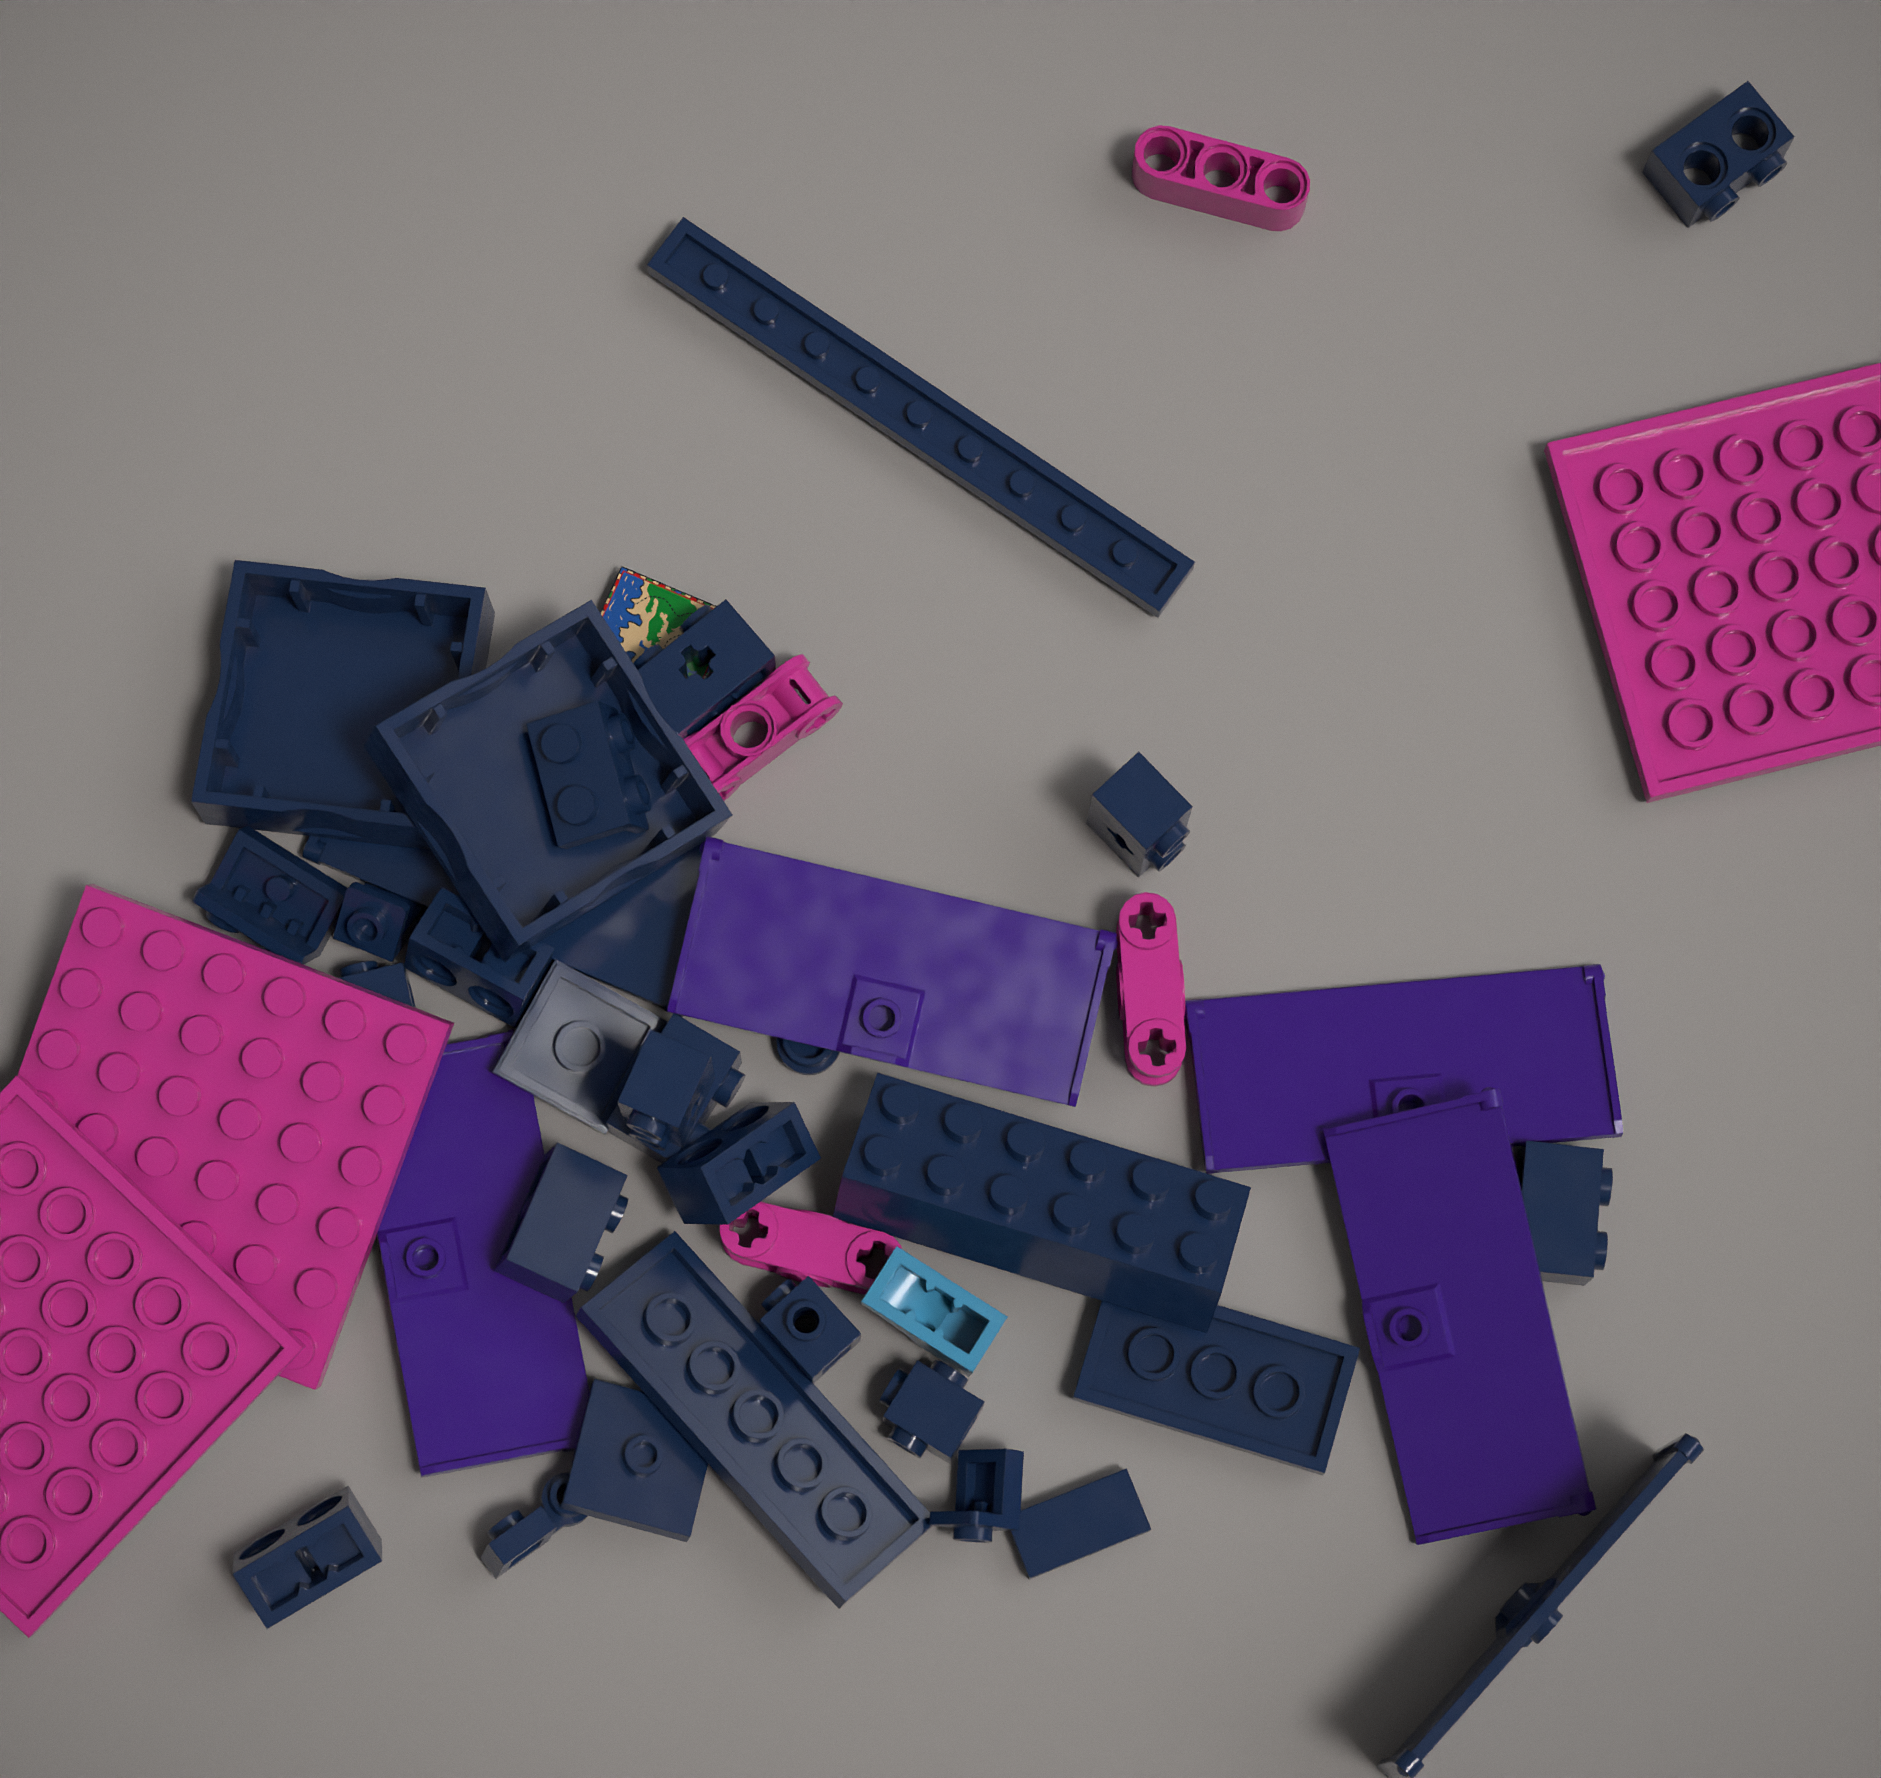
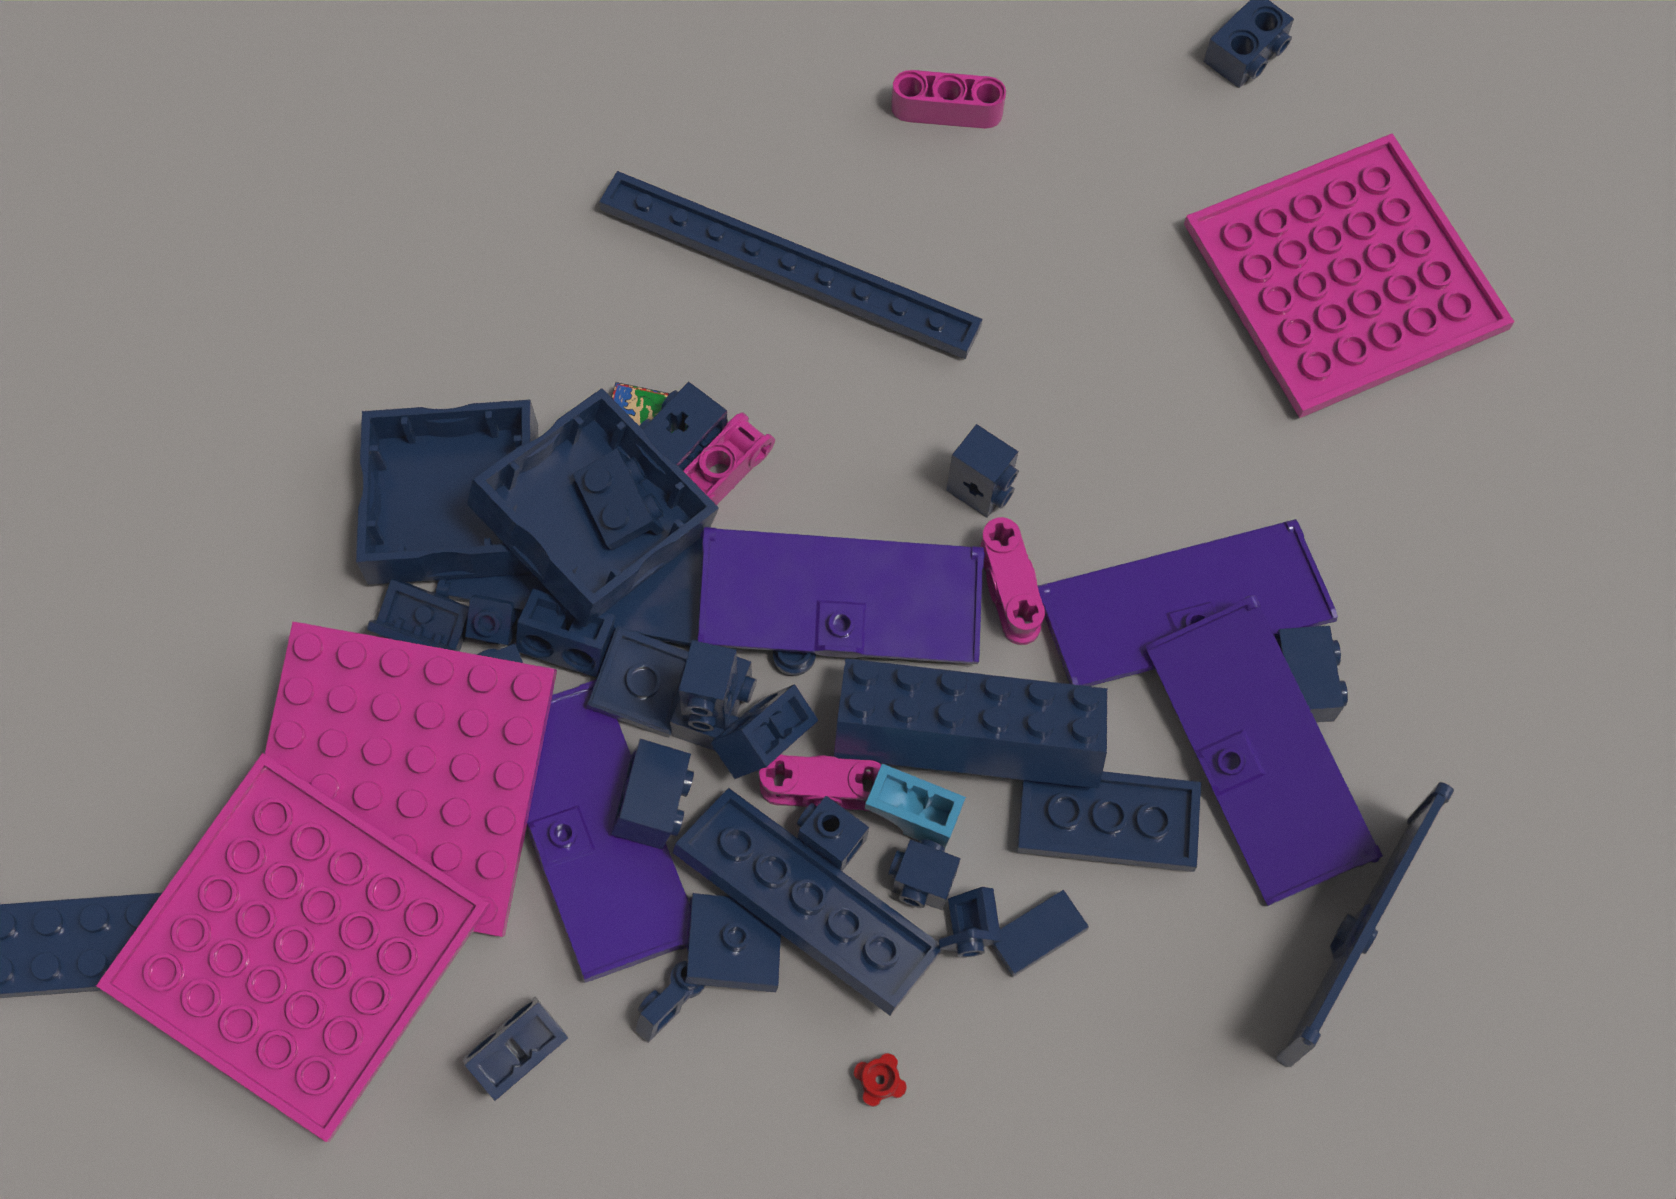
camera: 10 degrees left, 10 degrees down
(795, 1679) = (886, 1067): none -> red plate

